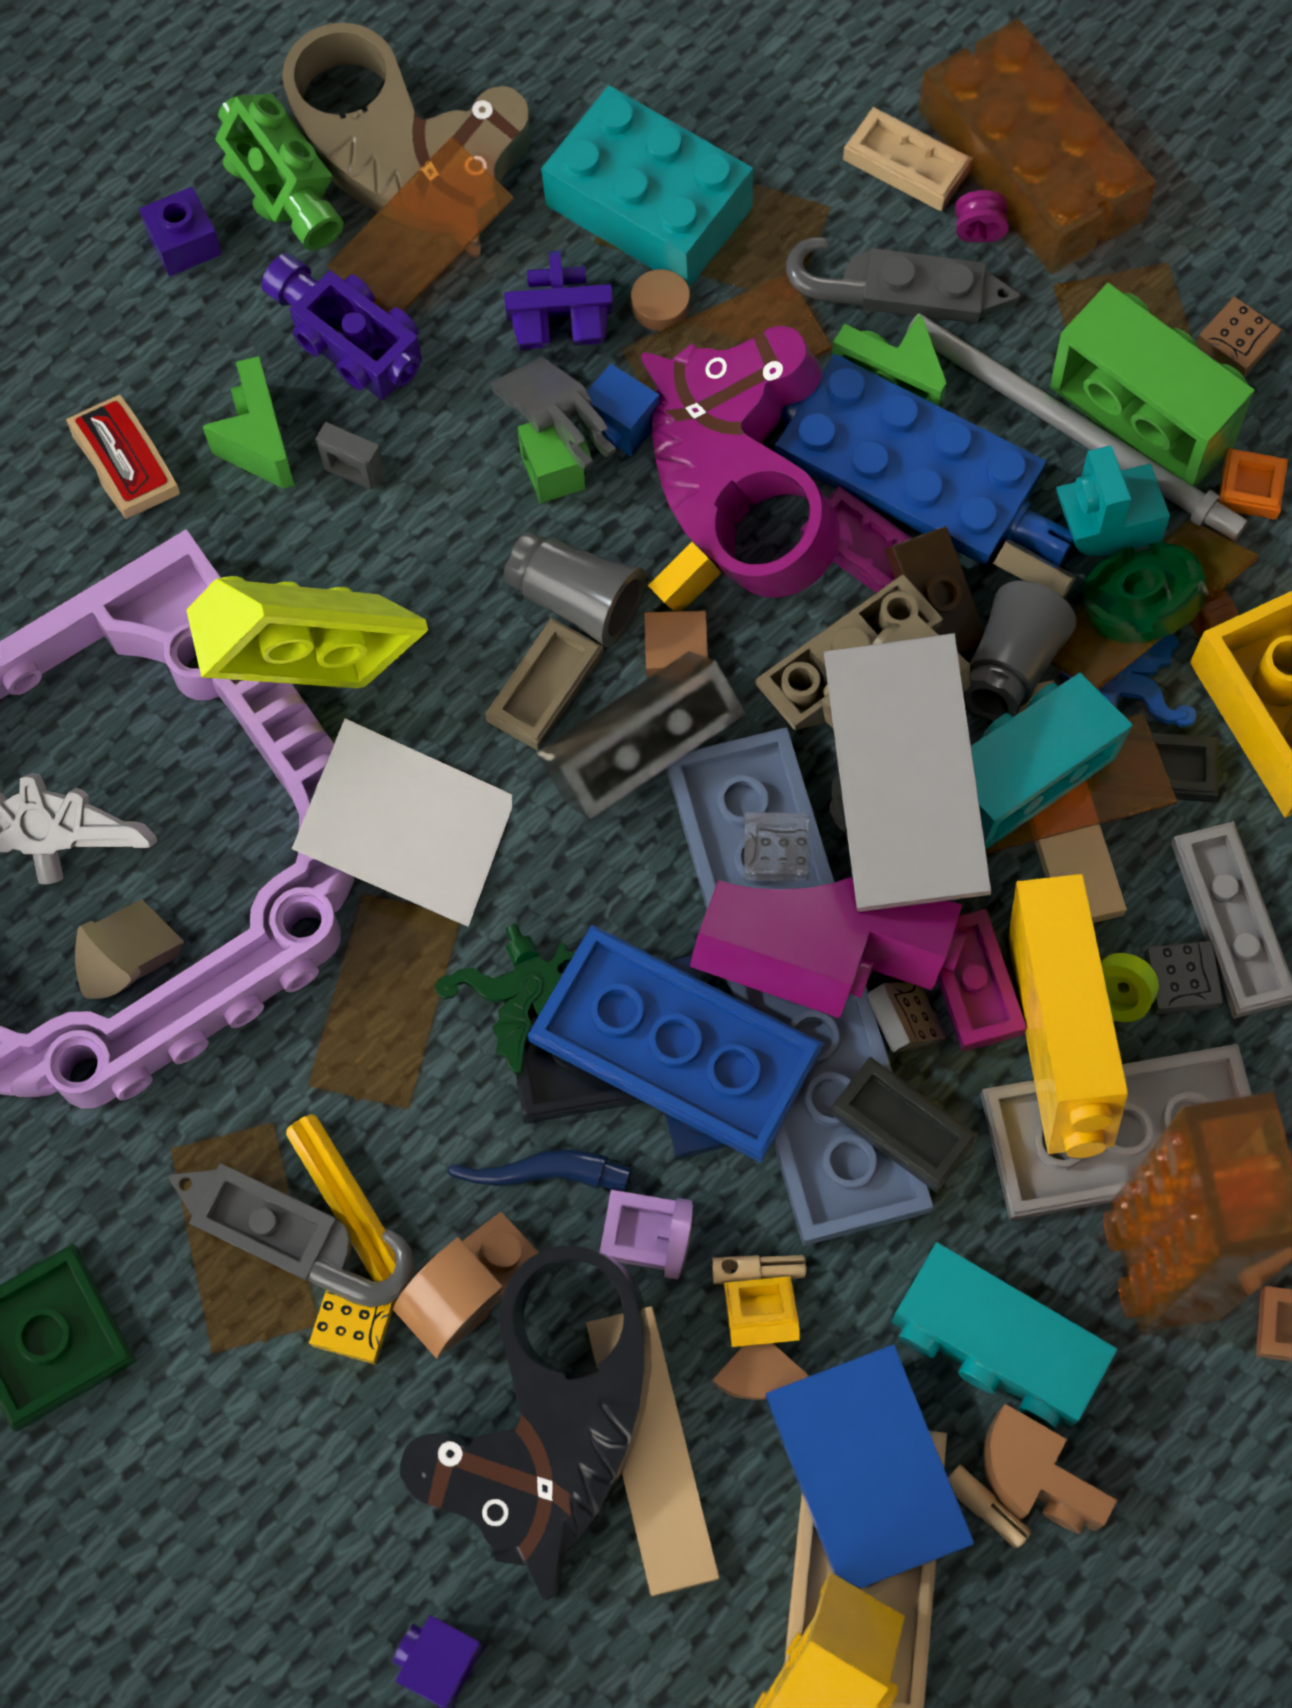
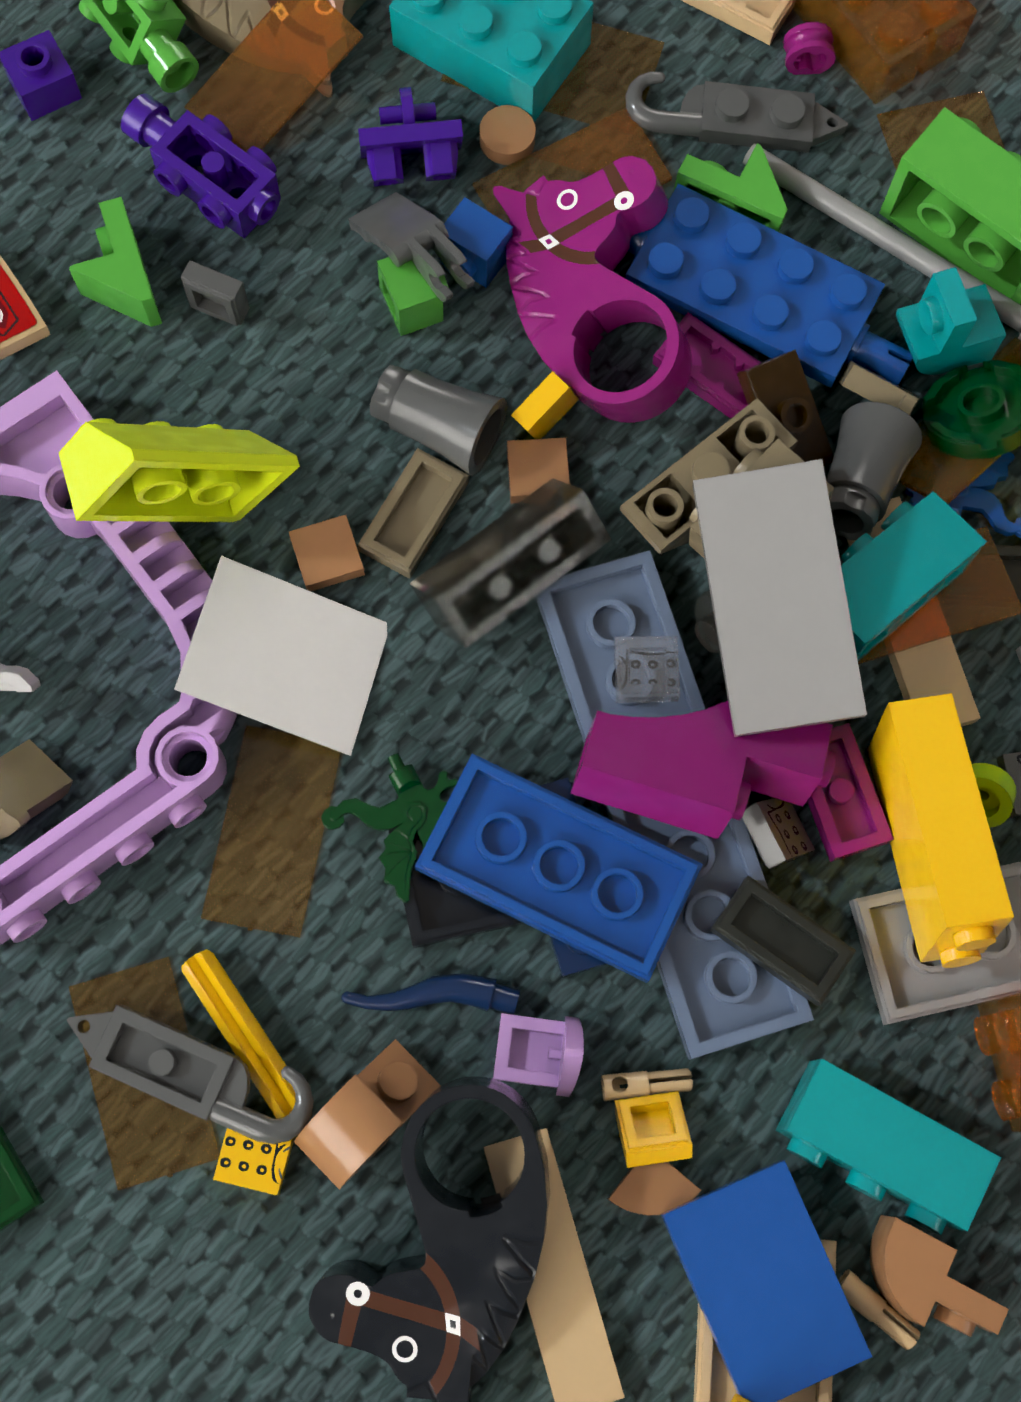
camera: 10 degrees left, 5 degrees up
(453, 722) = (326, 553): none -> medium nougat tile

